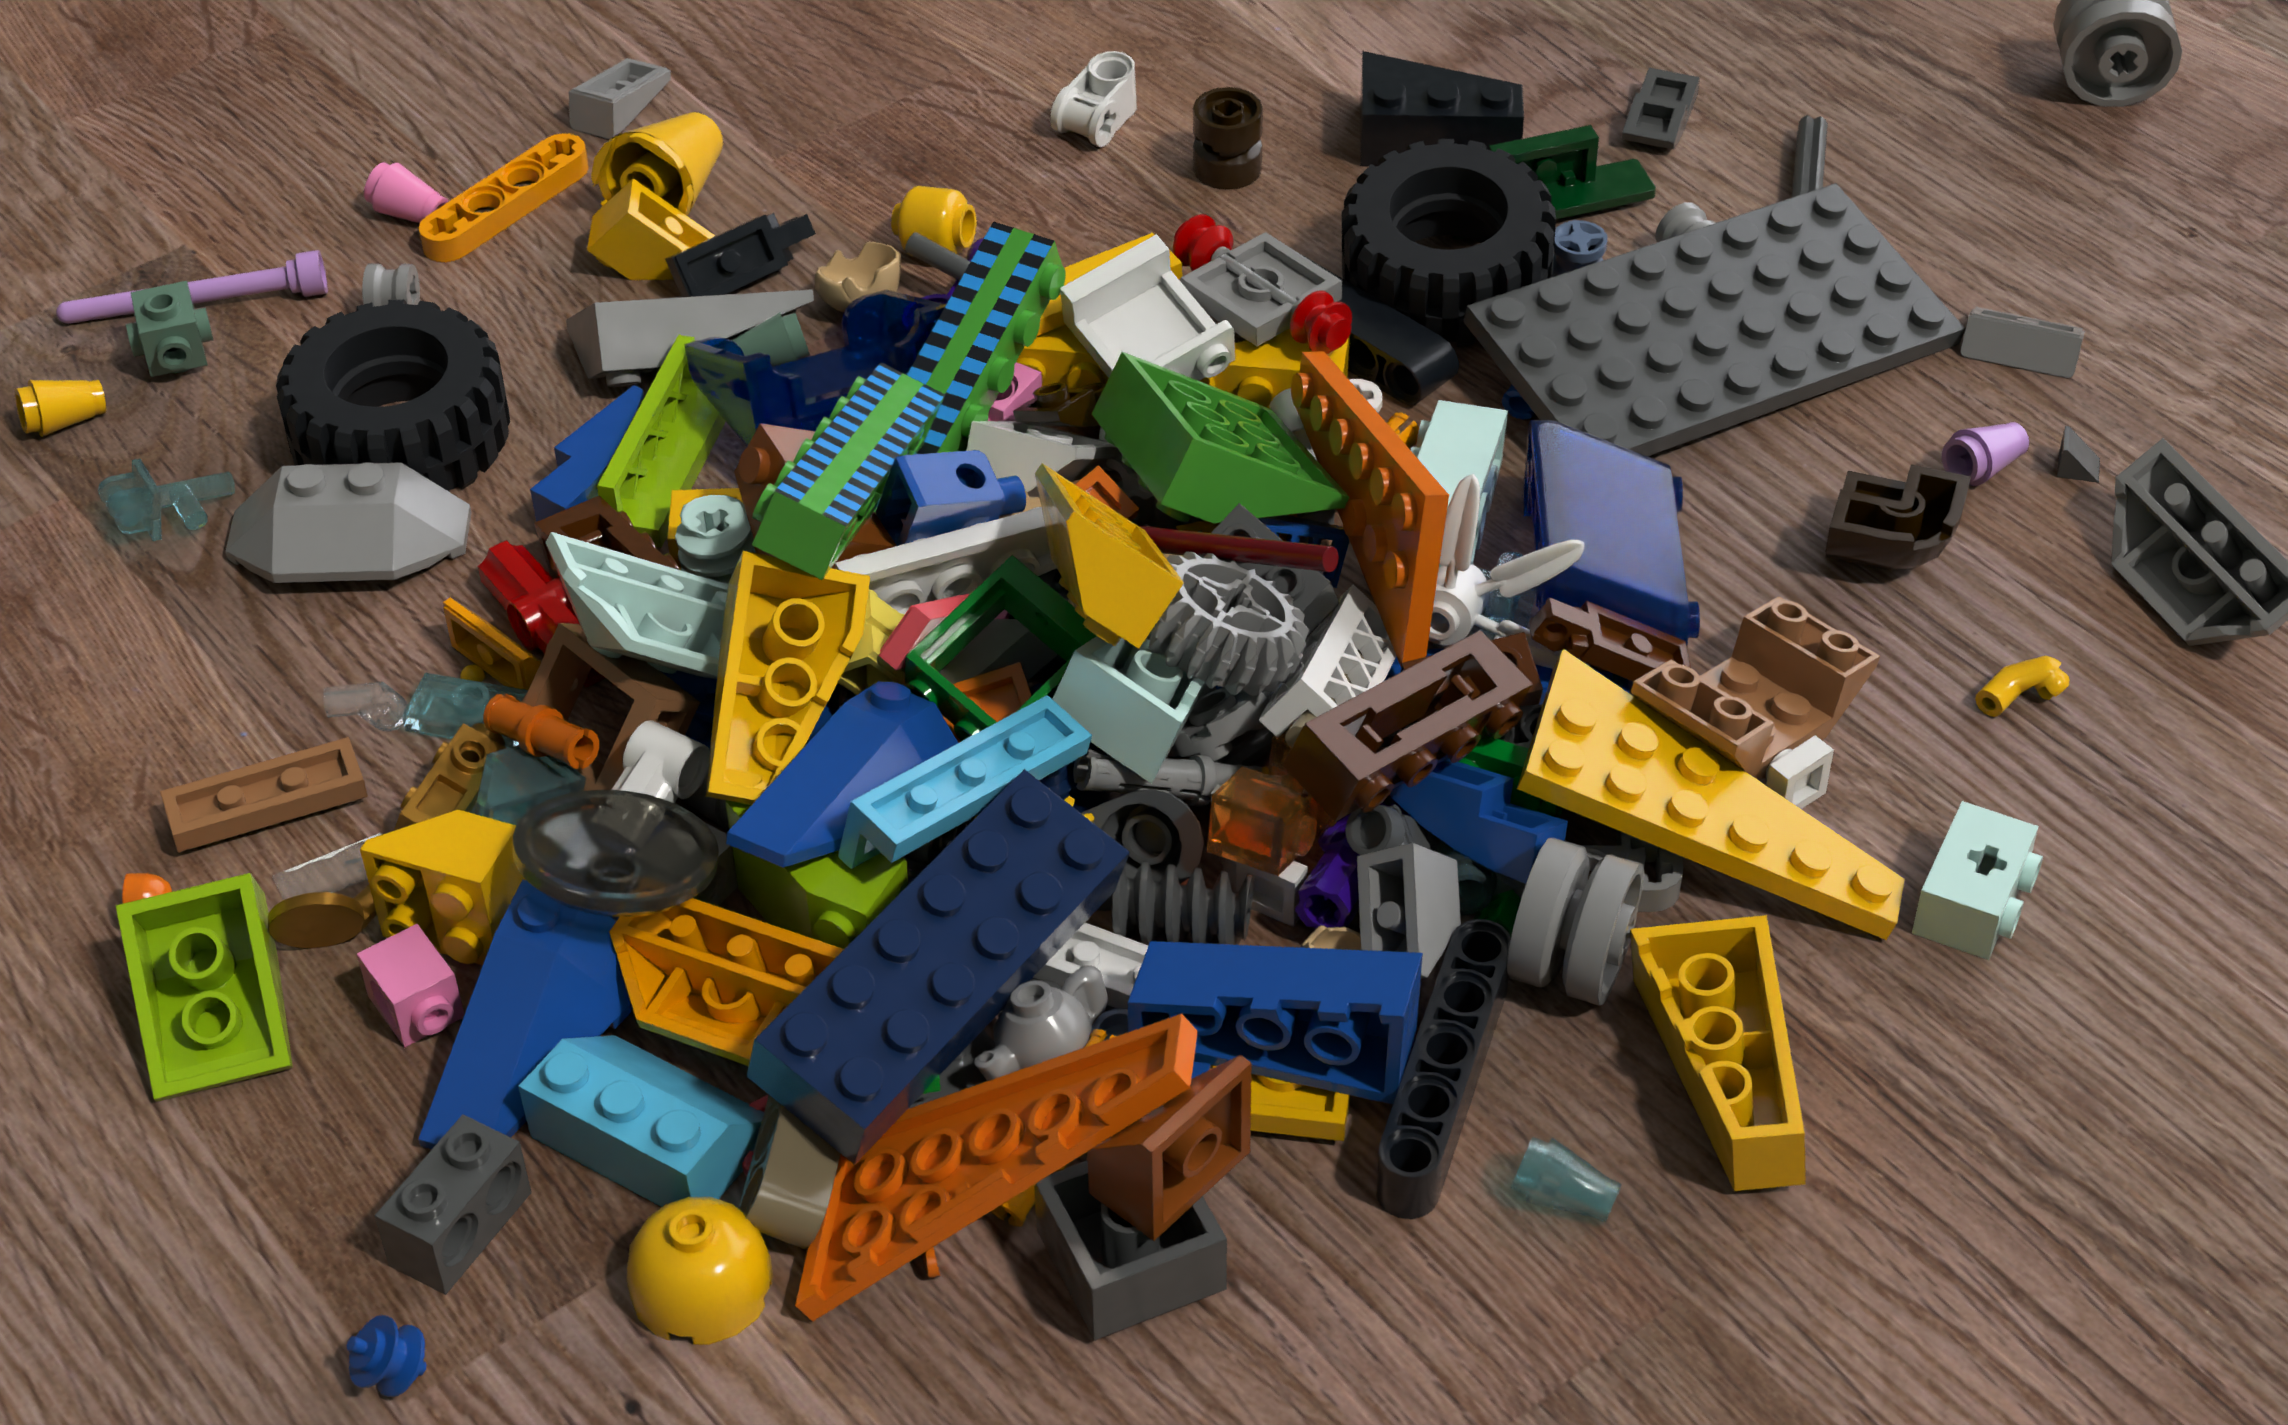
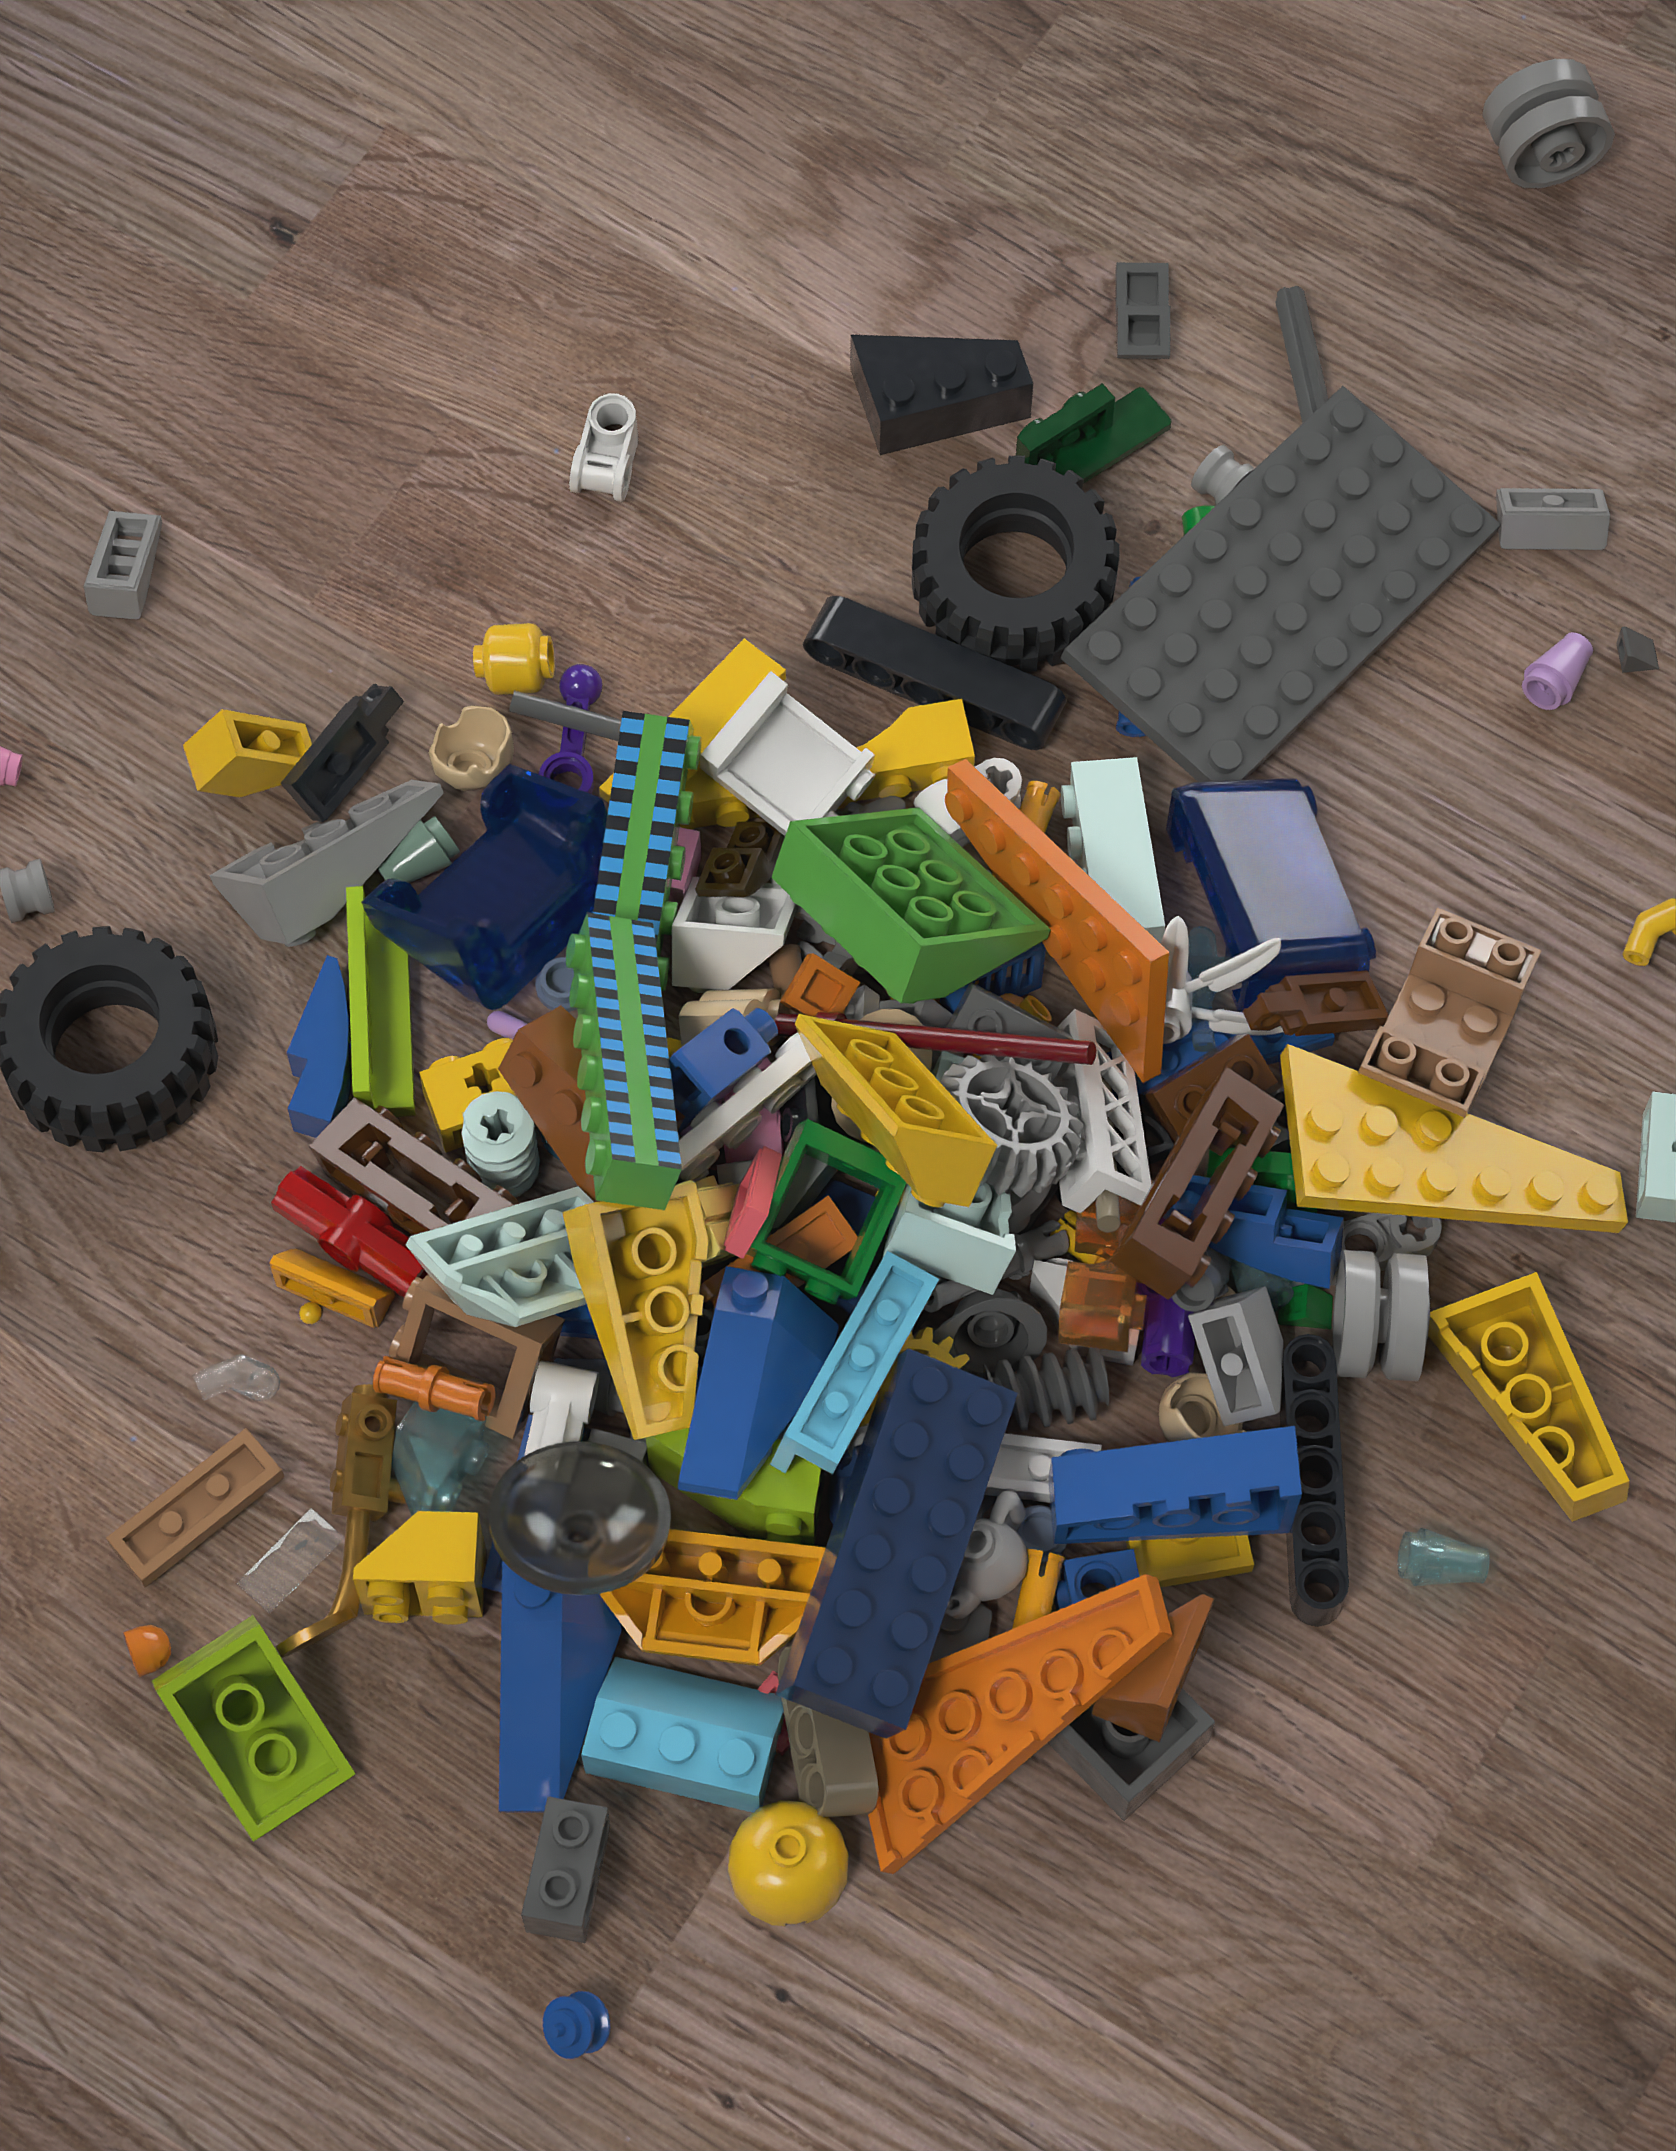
camera: 20 degrees left, 20 degrees up
(347, 524) = (121, 1192): light grey wedge -> none
(411, 985) = (427, 1668): bright pink brick -> none
(447, 702) = (330, 1356): clear light blue plate -> none
(458, 230) = (65, 728): light orange beam -> none
(664, 157) = (223, 662): yellow cone -> none
(1227, 138) = (754, 473): dark brown wheel -> none
(1261, 286) = (869, 679): light grey plate -> none
(1577, 246) = (1136, 515): sand blue wheel -> none
(1802, 772) = (1503, 1091): white plate -> none
(1896, 521) = (1508, 782): dark brown brick -> none

